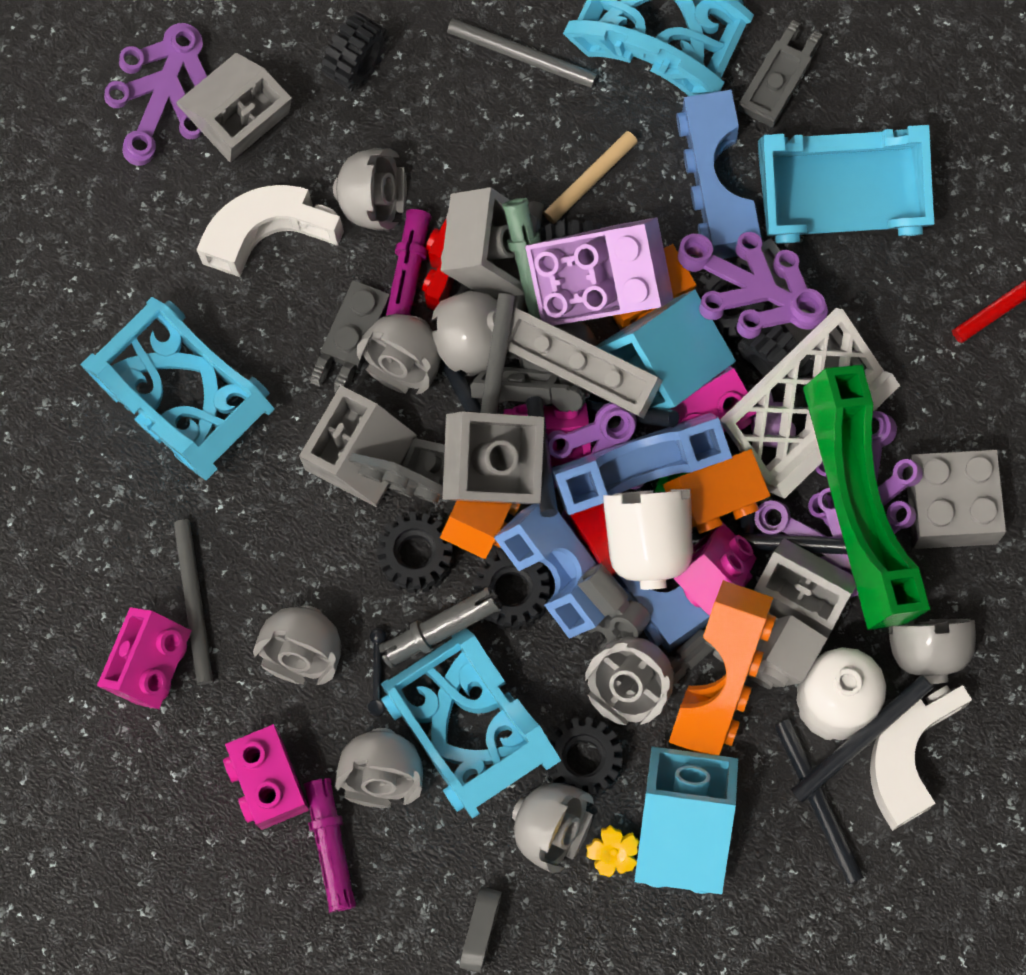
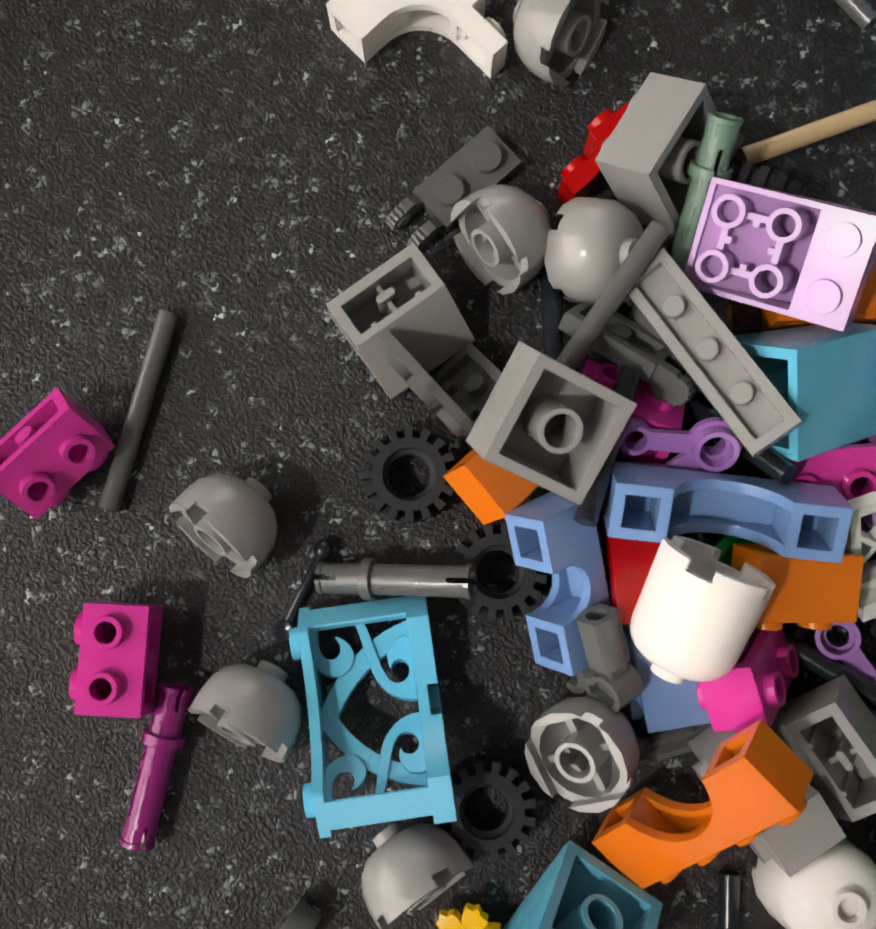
camera: 20 degrees right, 10 degrees up
(194, 445) = (222, 232): medium azure fence -> none
(410, 254) = (566, 127): magenta pin -> none

